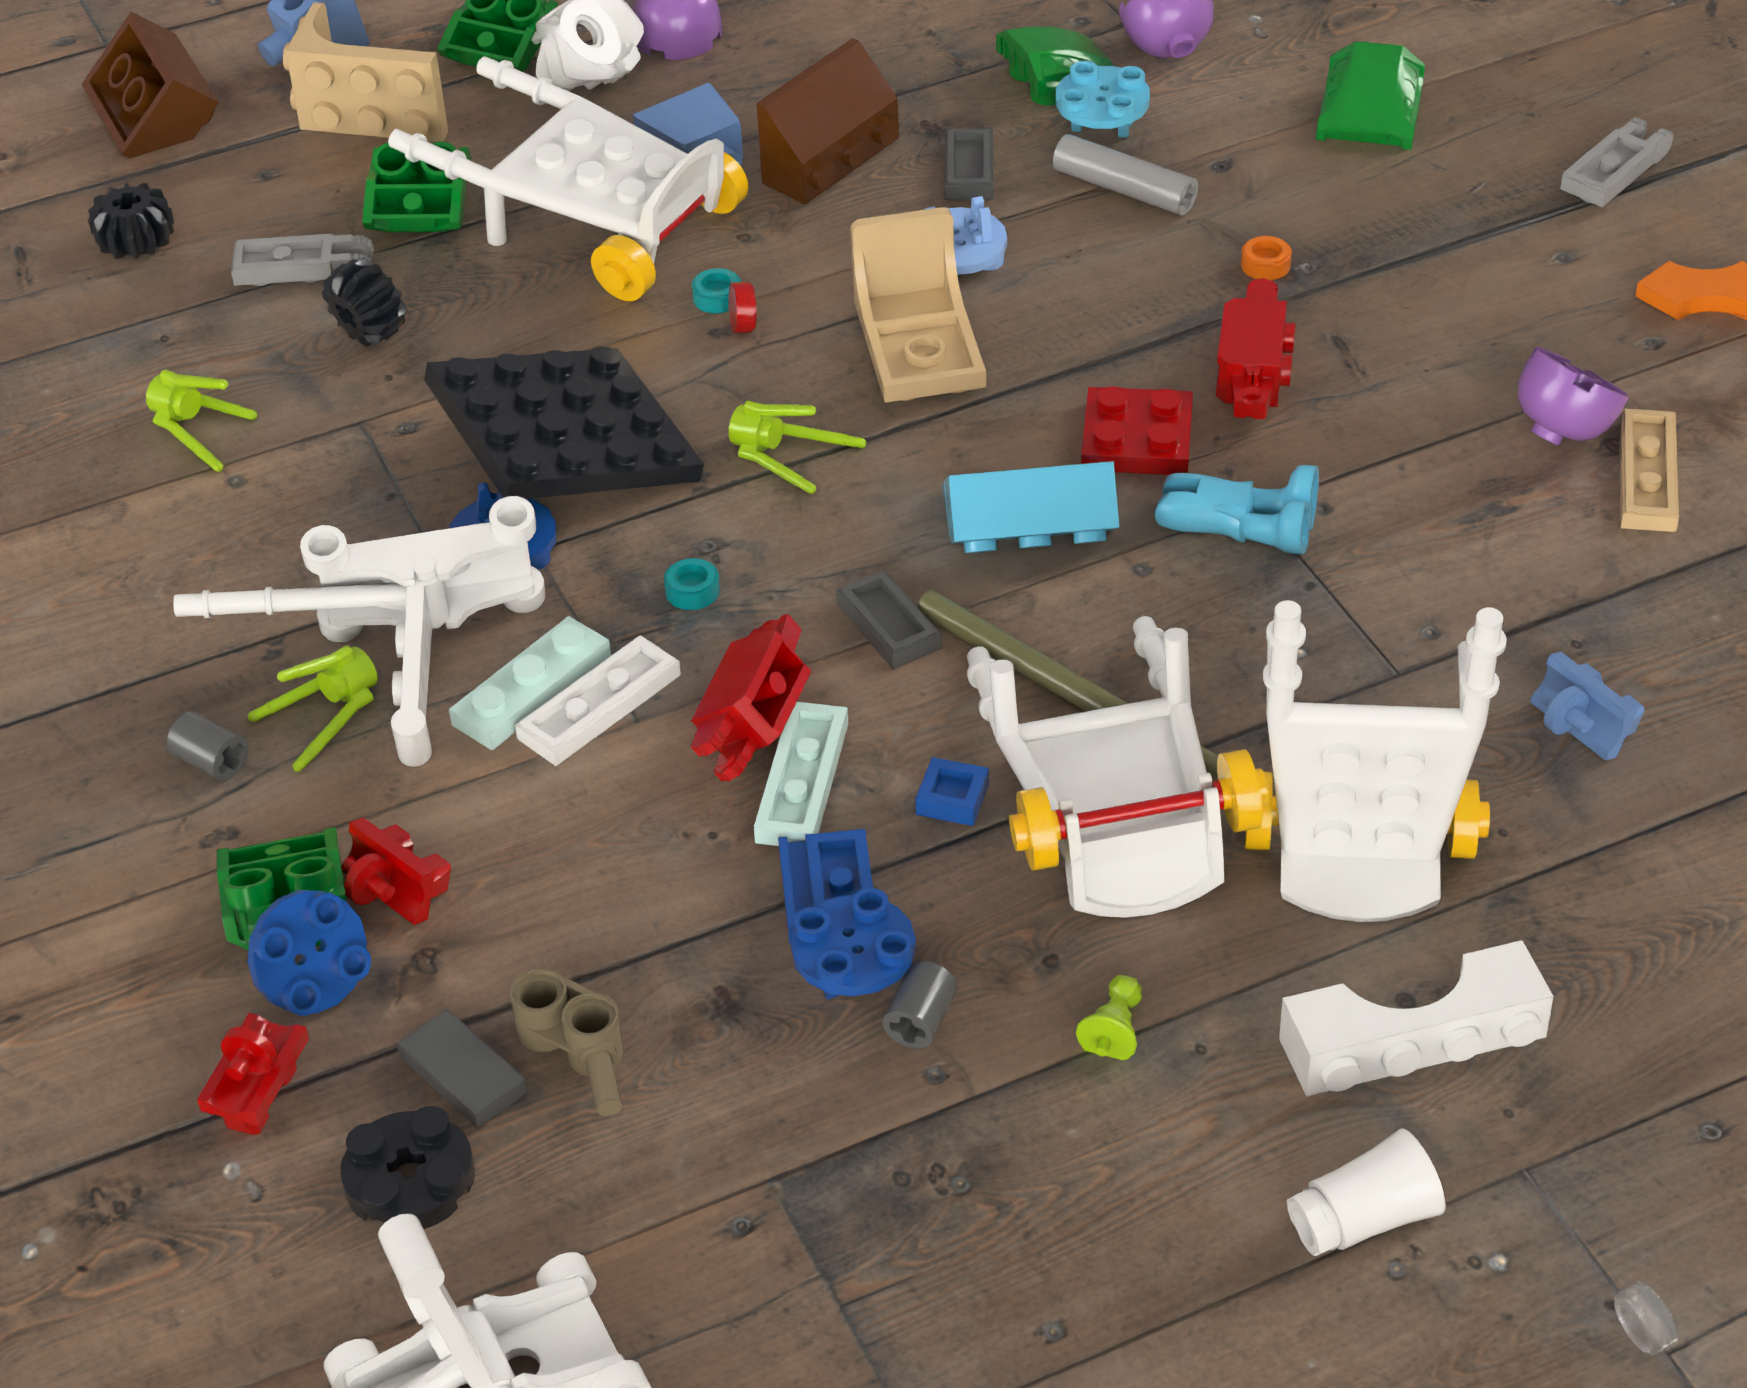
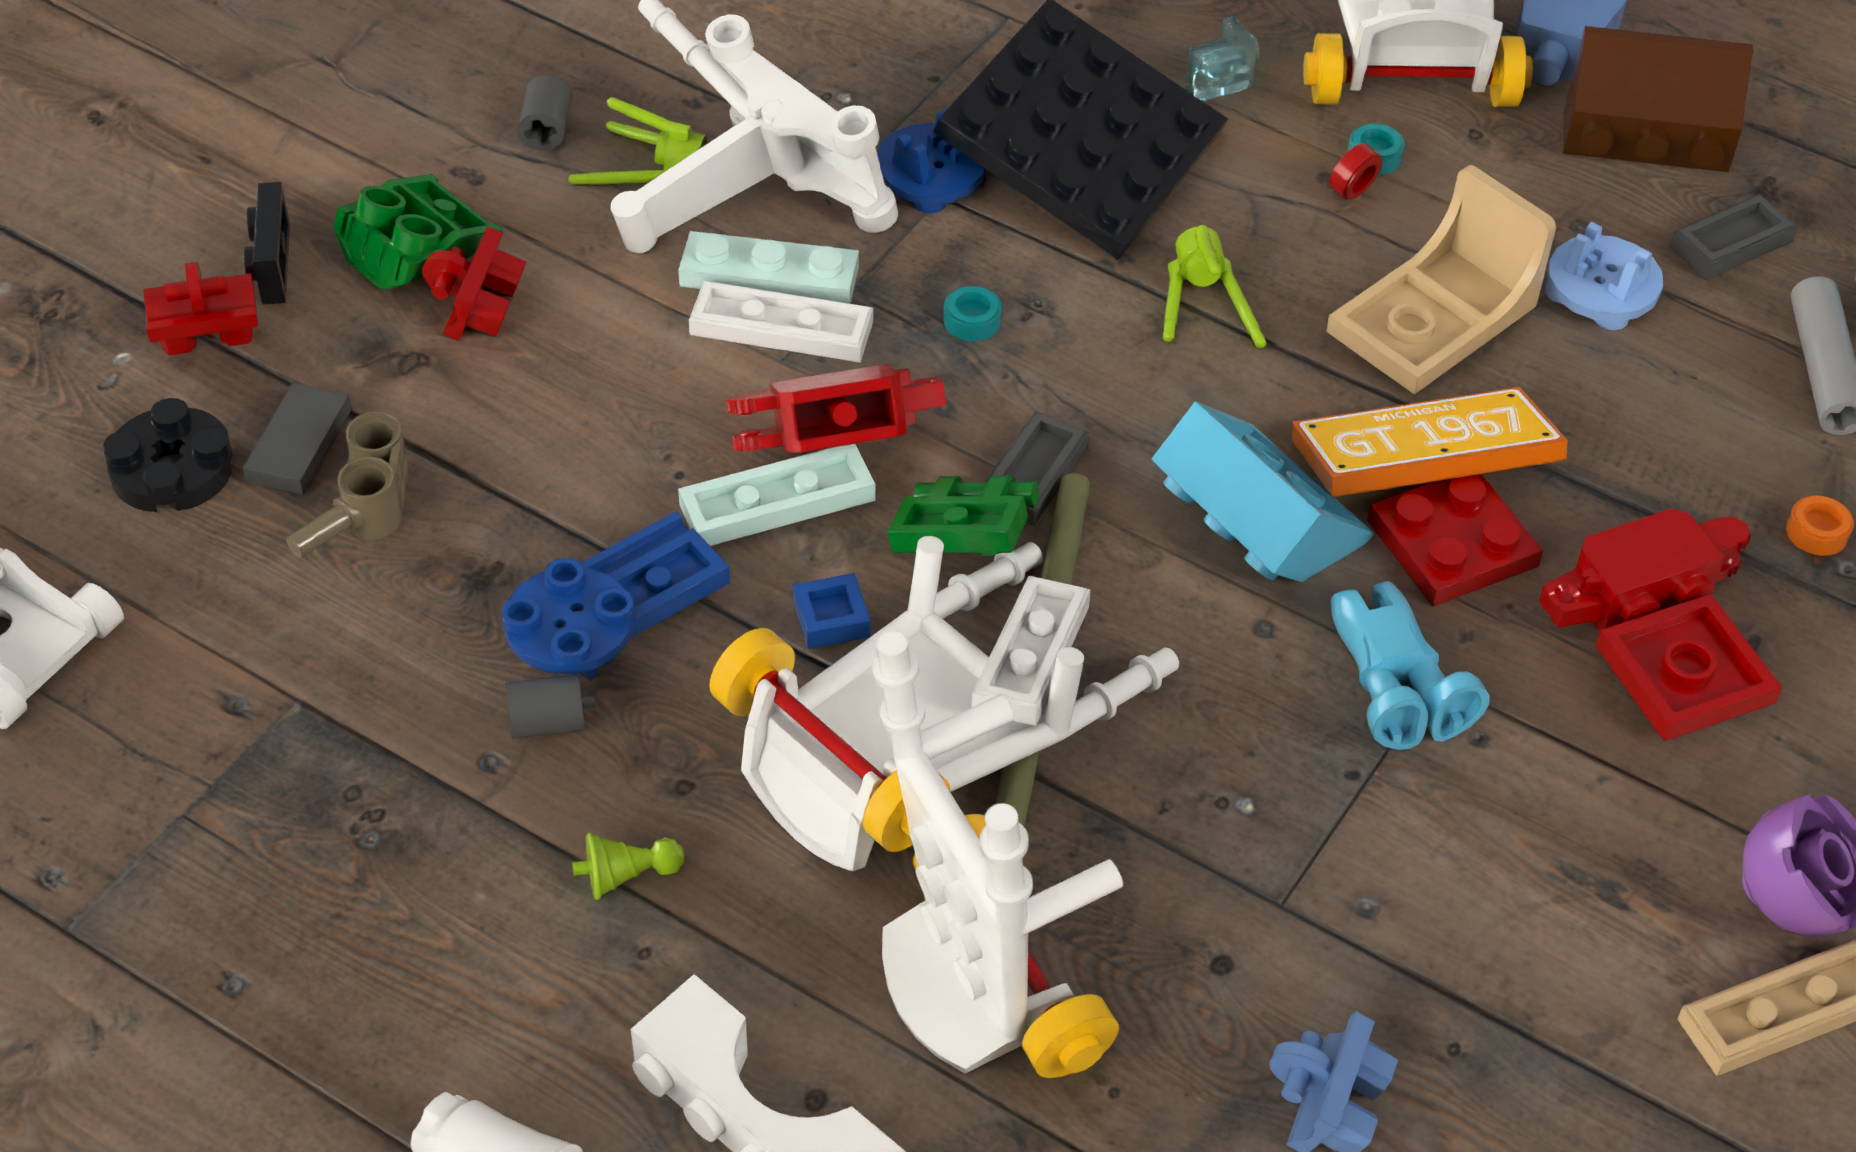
camera: 55 degrees right, 5 degrees up
(197, 990) = (270, 232): none -> black plate
(321, 975) = (330, 300): blue plate -> none
(552, 314) = (1223, 64): none -> clear light blue bracket
(925, 669) = (964, 515): none -> green plate
(1047, 397) = (1428, 441): none -> tile
(1104, 681) = (1027, 648): none -> white tile
(1348, 374) = (1688, 667): none -> red plate

